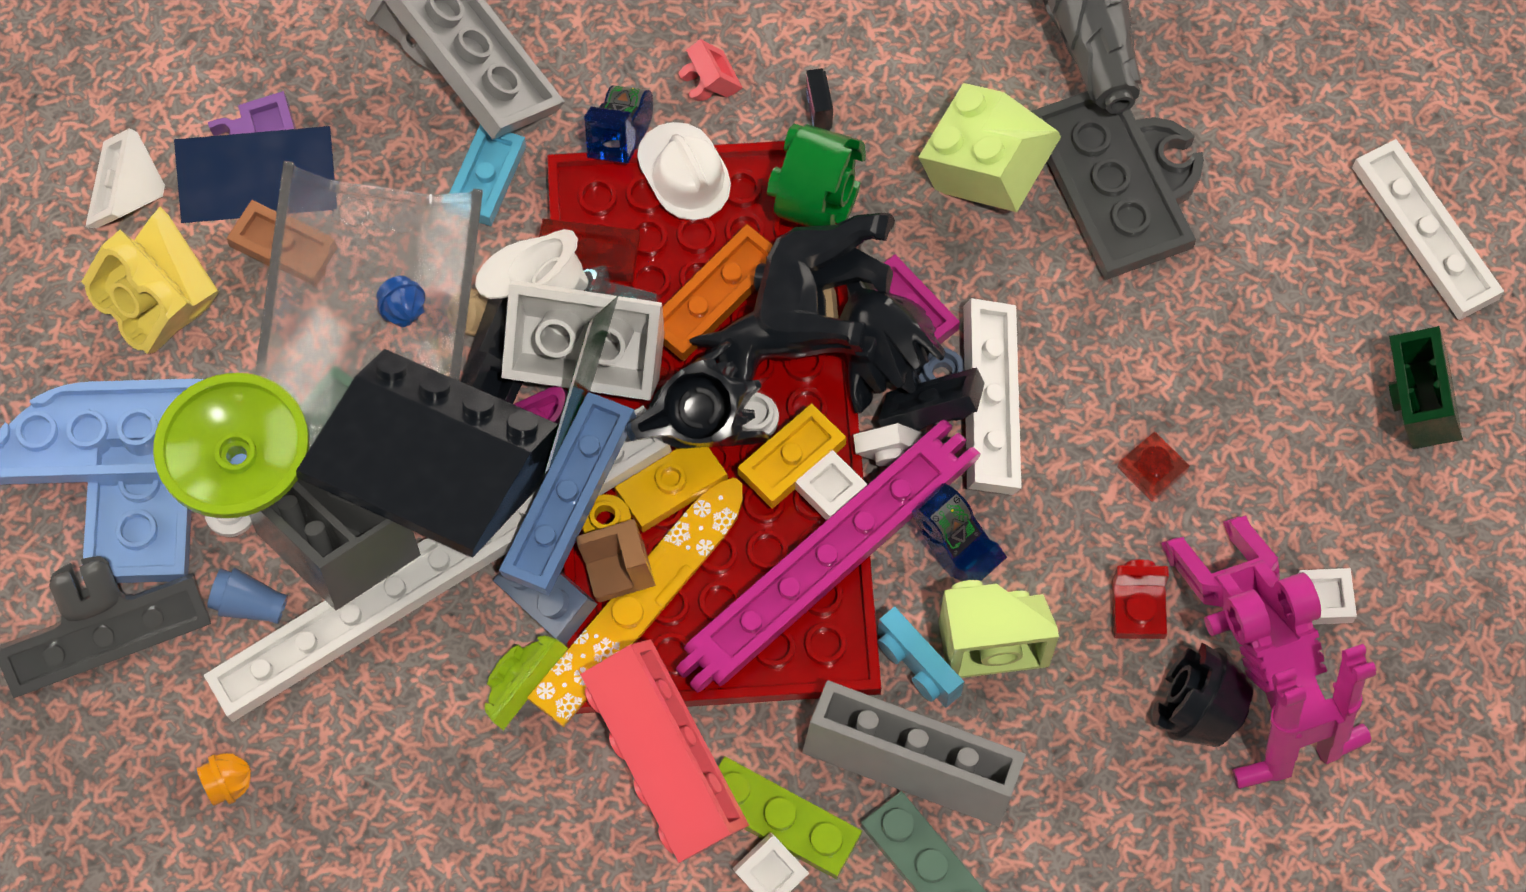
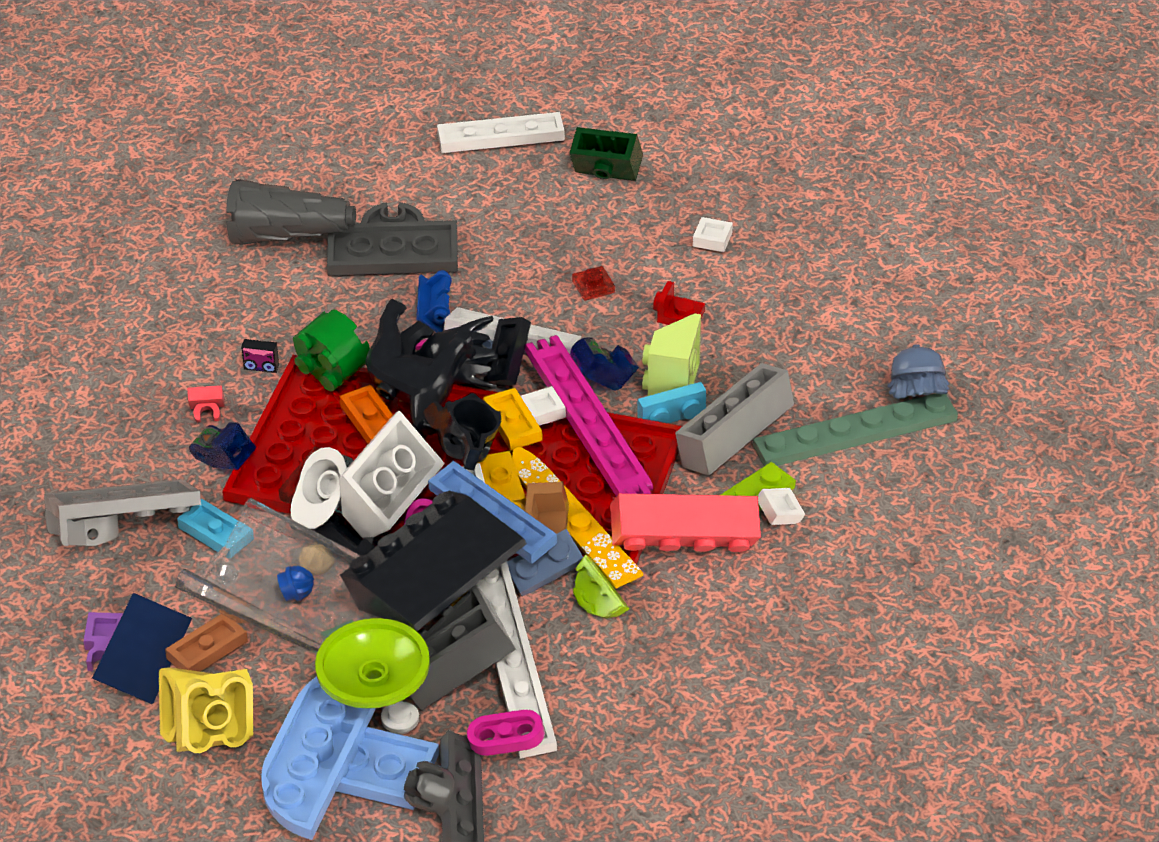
camera: 70 degrees left, 25 degrees down
(123, 179) = (99, 725): white slope -> none
(209, 652) = (506, 732): none -> dark pink plate
(224, 778) = (598, 759): light orange plate -> none
(244, 597) = (460, 719): medium blue cone -> none
(583, 374) = (423, 456): sticker -> none
(684, 170) = (278, 421): white piece -> none
(885, 443) = (525, 378): white plate -> none
(988, 148) = (347, 282): yellowish green slope -> none
(1015, 269) = (434, 300): none -> blue hinge
(1205, 698) = (755, 289): black cone -> none
(1280, 652) = (743, 232): dark pink piece -> none

